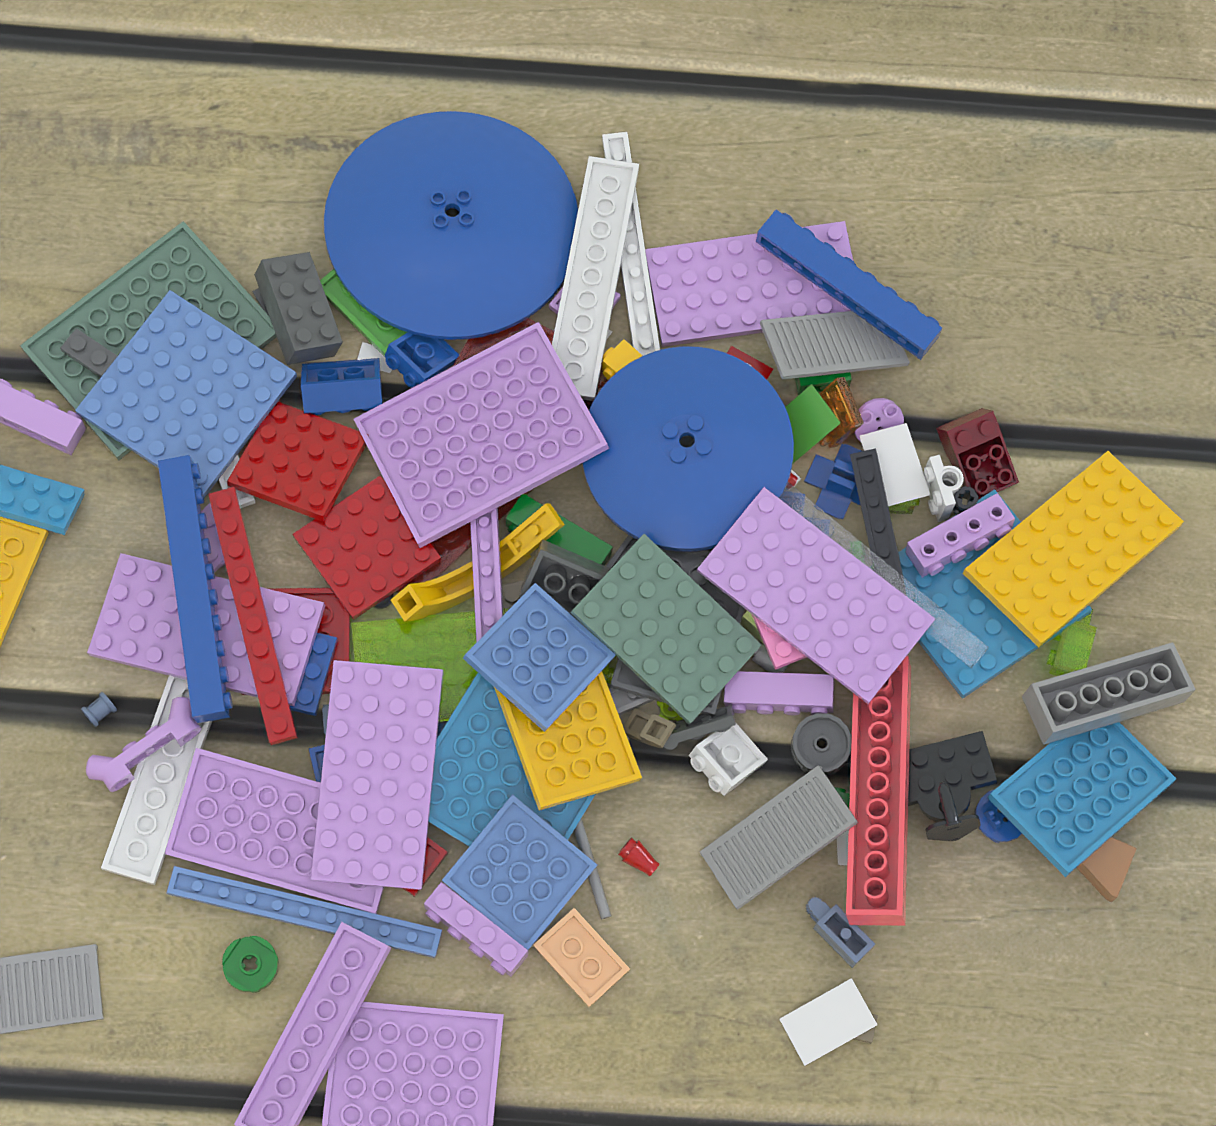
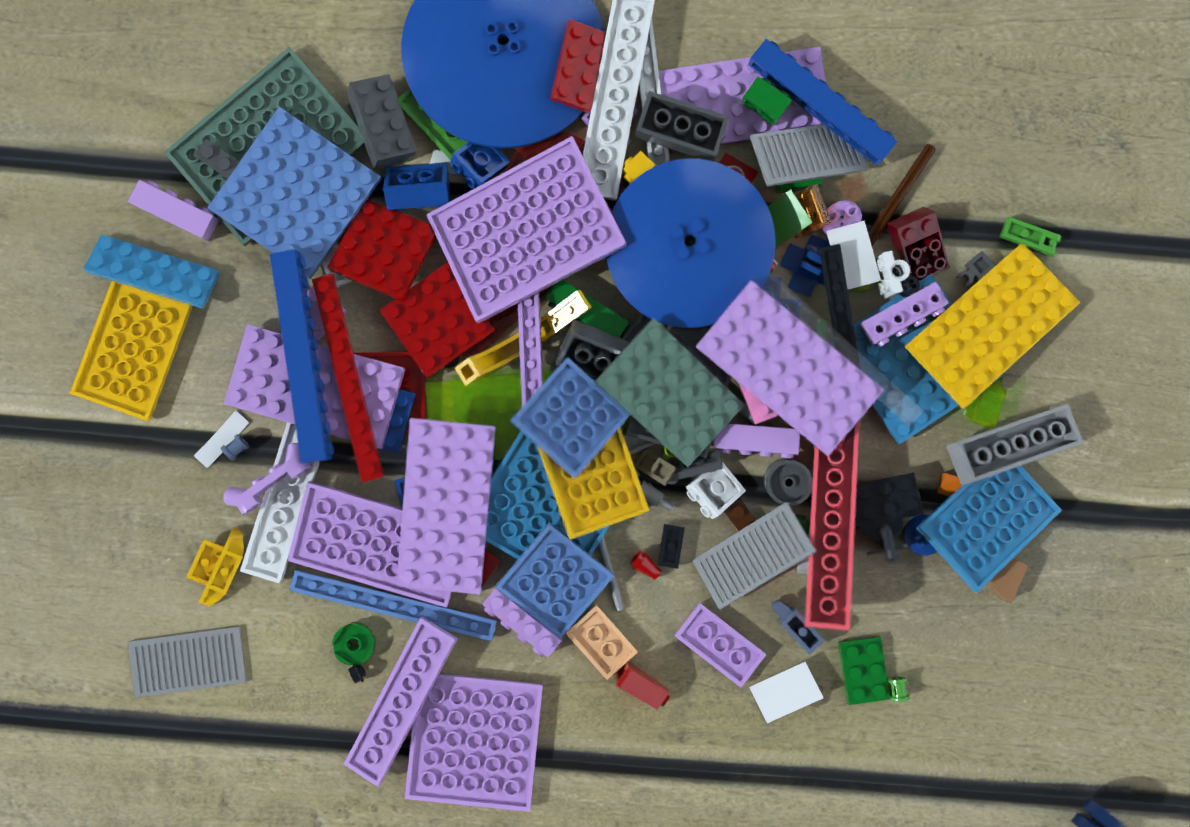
camera: 10 degrees right, 15 degrees up
(69, 864) = (216, 566): none -> yellow plate
(70, 710) = (223, 436): none -> white sticker
(254, 1003) = (357, 673): none -> black plate
(545, 242) = (578, 66): none -> red plate
(636, 1012) = (642, 685): none -> red slope
(650, 768) = (655, 496): none -> light grey piece
(671, 831) = (670, 546): none -> black plate
(674, 311) = (681, 126): none -> dark grey brick
(739, 959) = (720, 644): none -> lavender plate
(757, 789) = (739, 515): none -> reddish brown plate
(779, 282) = (766, 100): none -> green brick
(930, 993) = (864, 670): none -> green plate
(952, 393) = (900, 192): none -> reddish brown axle
(977, 1015) = (898, 688): none -> bright green bush
(1029, 748) = (948, 484): none -> orange slope
(1051, 481) = (977, 268): none -> dark grey plate
(1118, 443) = (1030, 235): none -> bright green plate

